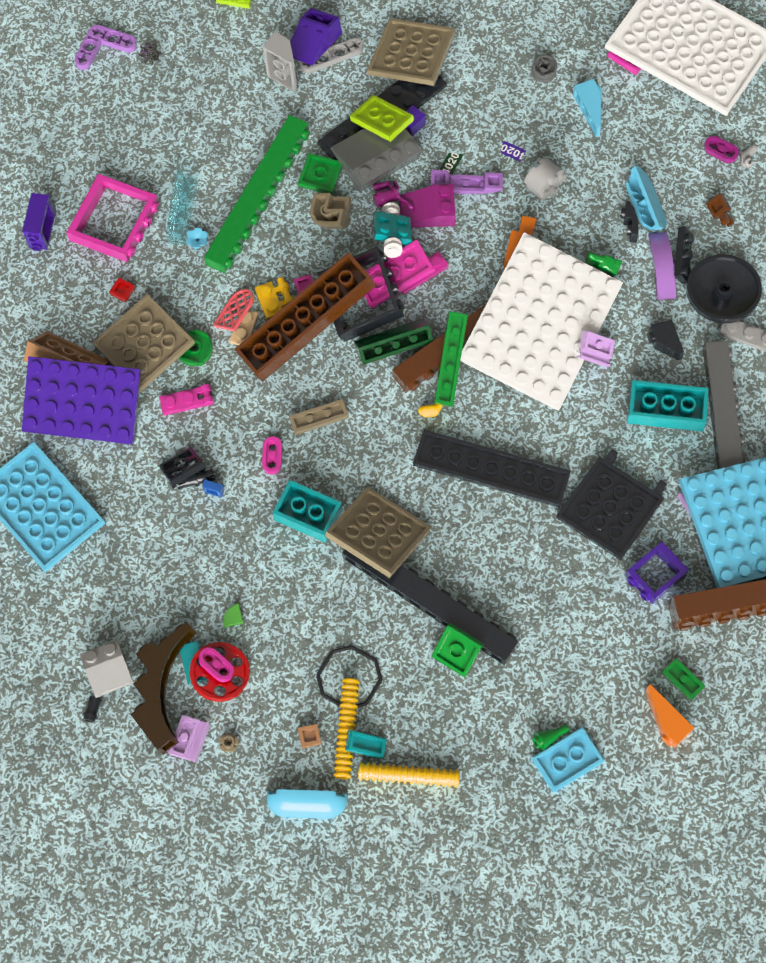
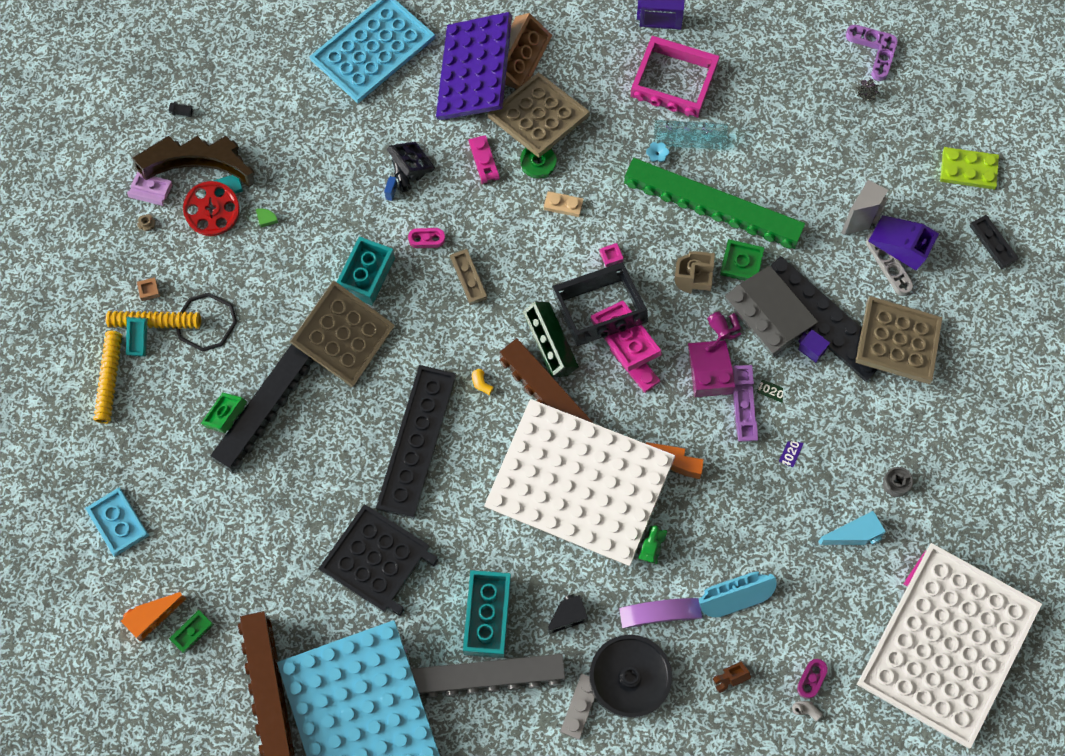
camera: 85 degrees right, 0 degrees up
(106, 668) = (214, 114): slope -> none
(122, 290) = (597, 92): red plate -> none
(216, 665) = (211, 201): dark pink plate -> none
(231, 301) = (581, 187): coral window -> none
(268, 297) = (596, 224): yellow plate -> none
(305, 317) = (567, 251): reddish brown brick -> none
(306, 803) = (87, 292): medium azure brick -> none
(381, 118) = (807, 310): lime plate -> none
(392, 229) = (675, 328): teal plate -> none
(450, 359) = (528, 391): green plate -> none
(544, 738) = (137, 499): green cone -> none
(545, 179) = (750, 481): light grey brick -> none
(596, 348) = (549, 538): lavender plate -> none
(630, 220) = (715, 575): black slope -> none
(670, 560) = (316, 618): dark purple window -> none
(683, 254) = (673, 633): black plate -> none

